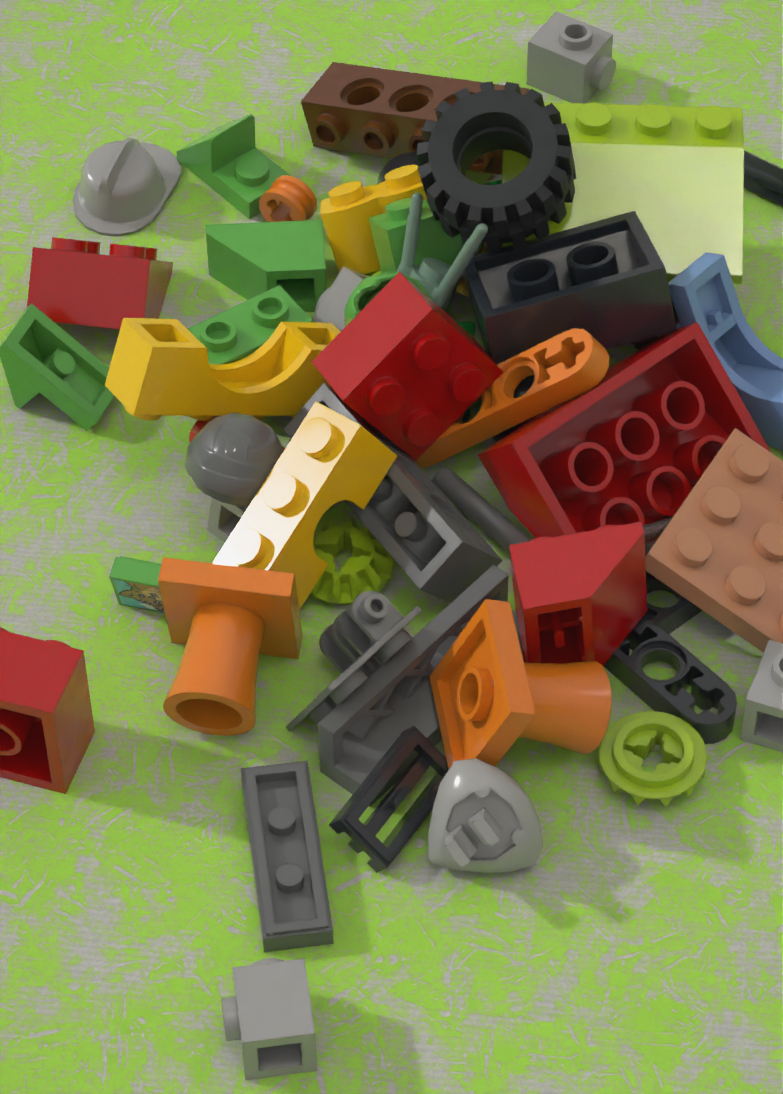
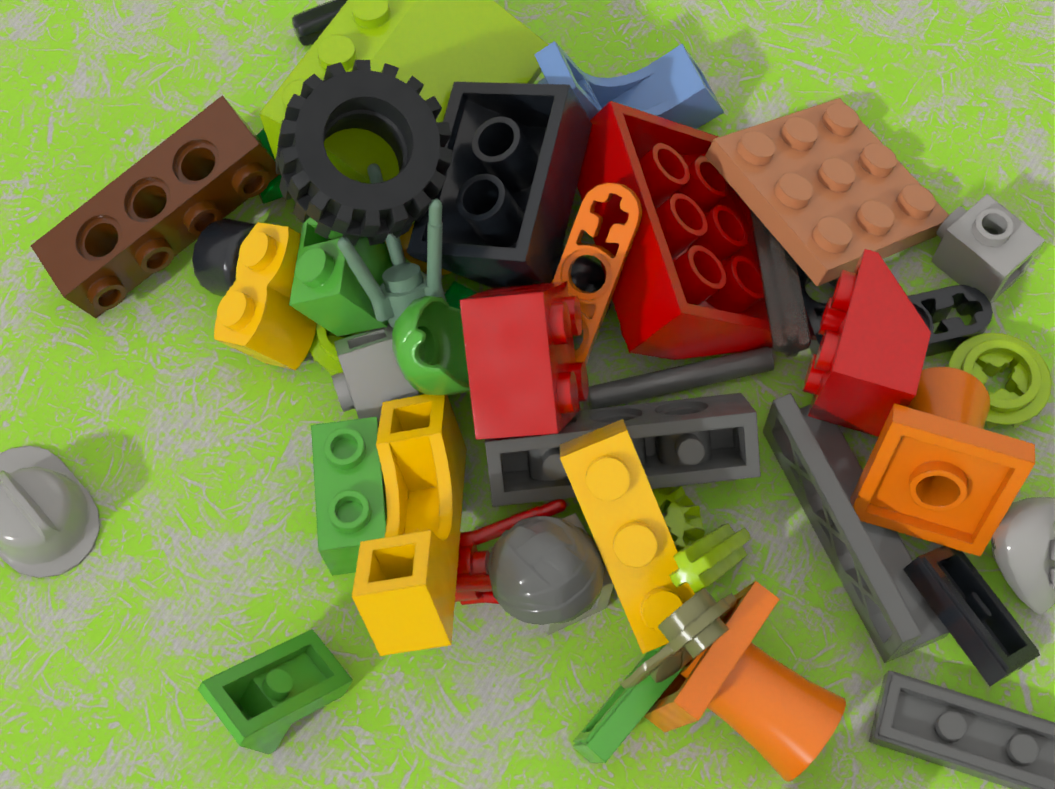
camera: 60 degrees left, 15 degrees up
(95, 289) = (175, 598): red slope -> none
(216, 535) = (689, 633): none -> olive plate
(232, 164) = (75, 400): bright green slope -> none
(270, 254) = (248, 420): bright green slope -> none
(288, 200) = (174, 372): orange bush -> none
(305, 554) = (709, 557): none -> lime axle
(357, 646) = (828, 579): dark grey hinge -> none
(570, 59) = (155, 61): light grey brick -> none

